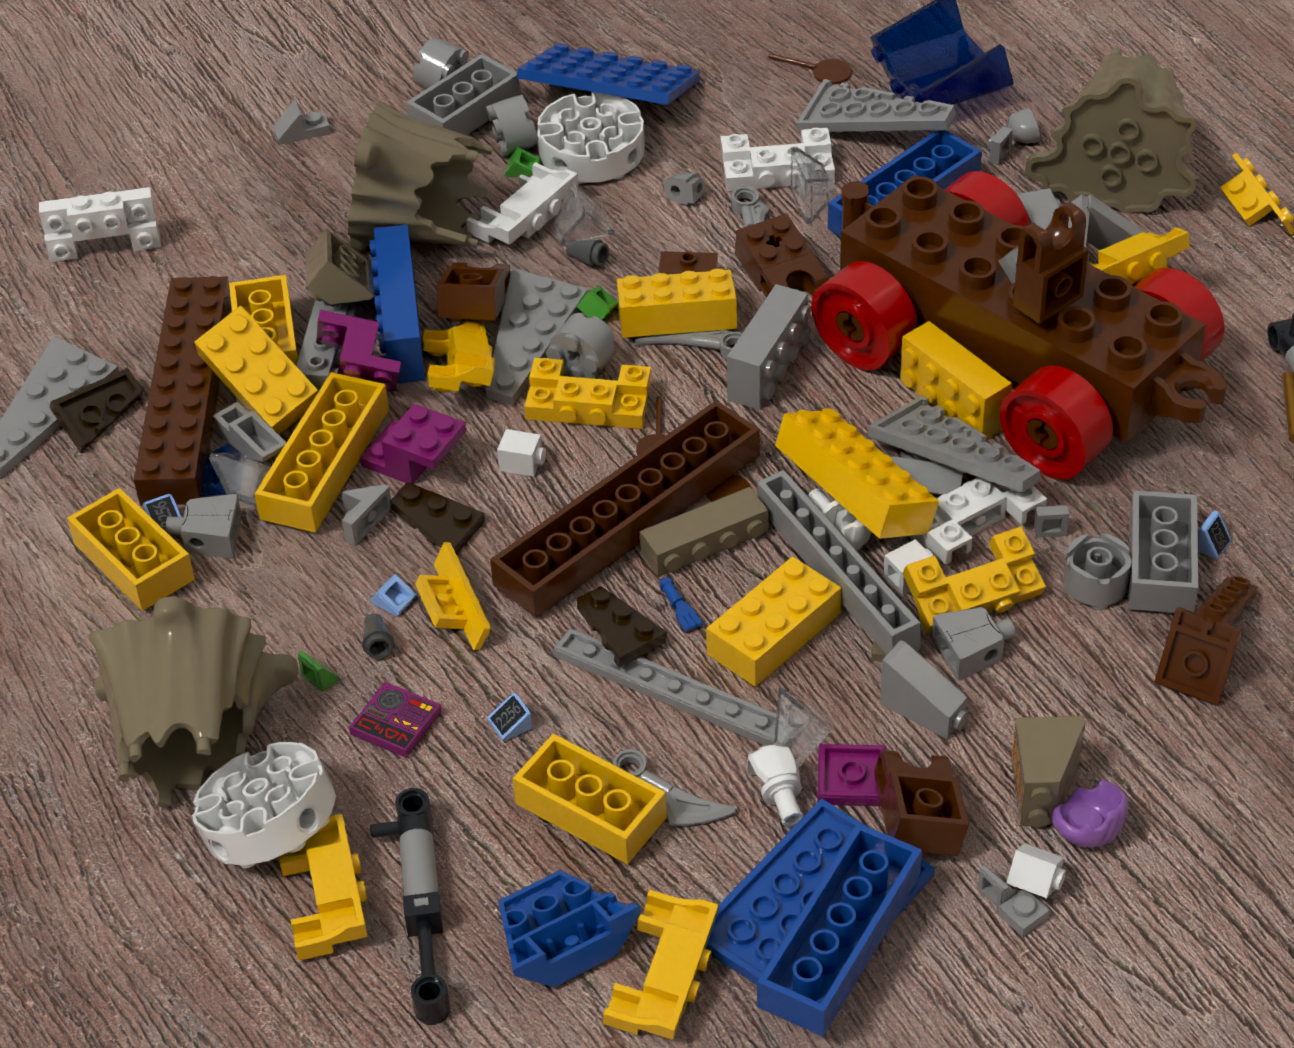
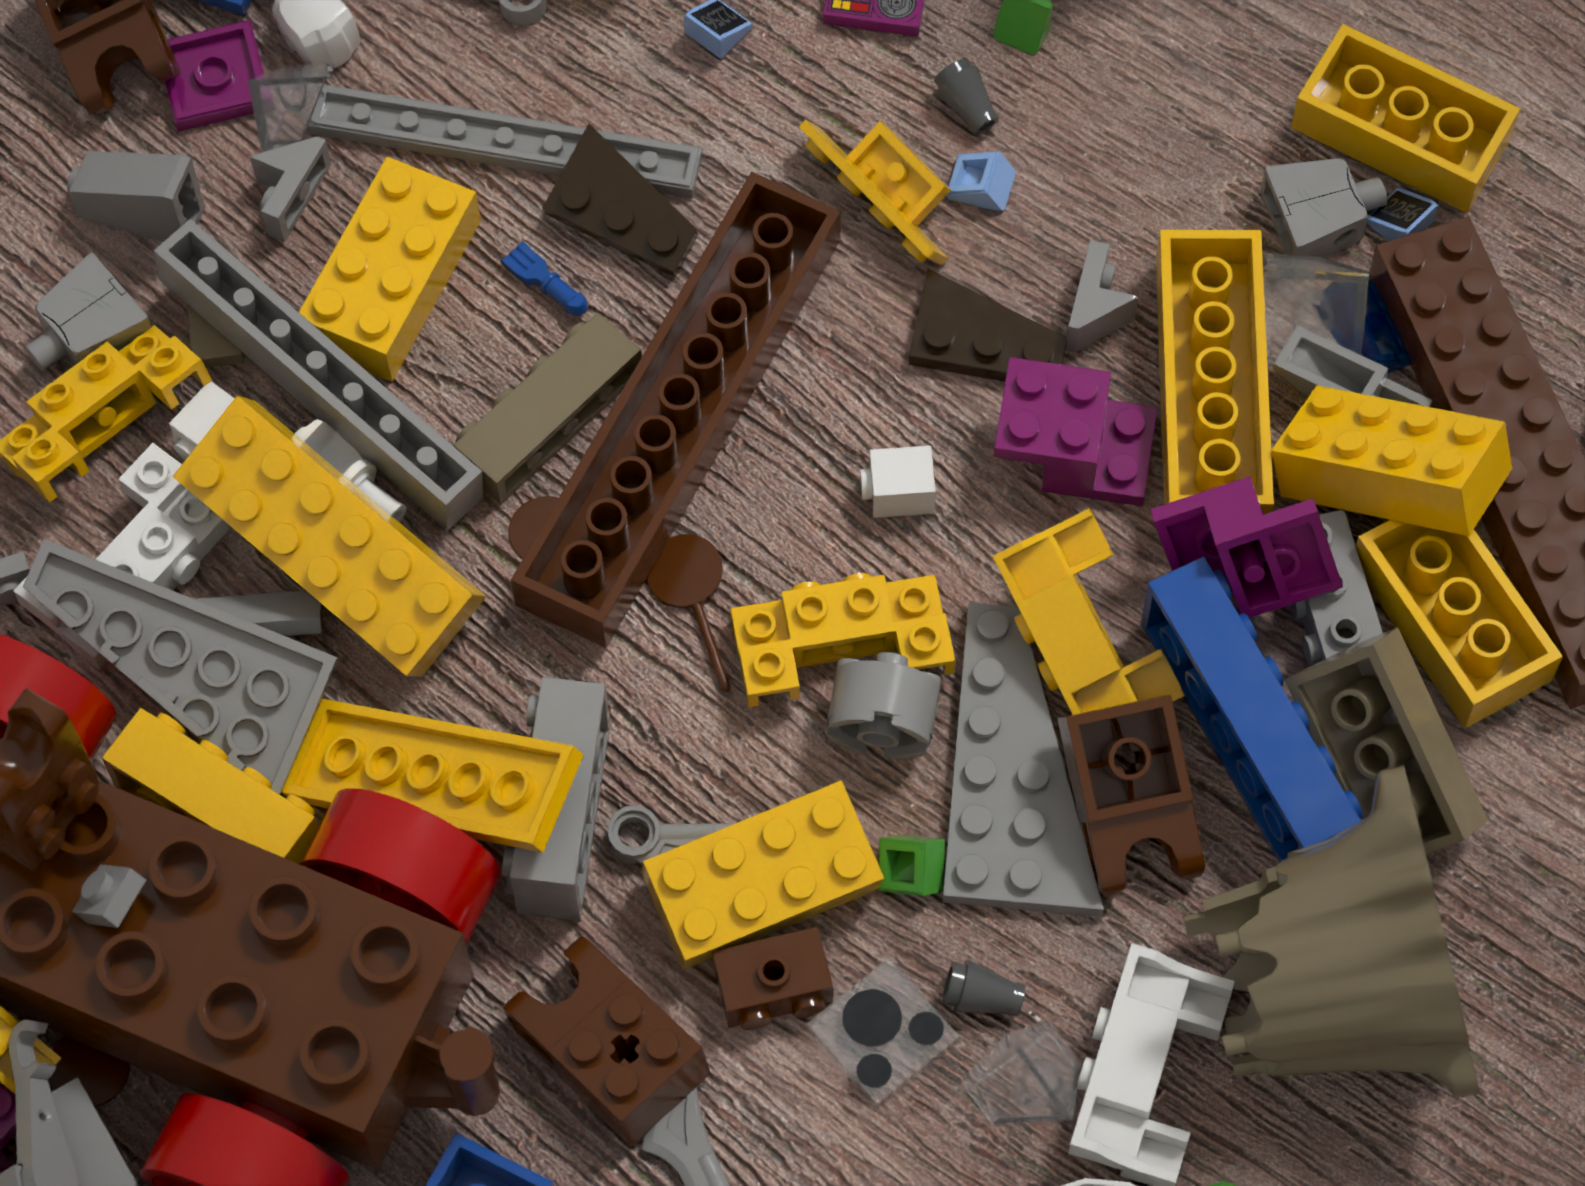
camera: 160 degrees right, 20 degrees up
(640, 250) = (883, 1033): none -> clear tile
(823, 683) = (292, 179): none -> light grey slope
(831, 350) = (473, 777): none -> yellow plate

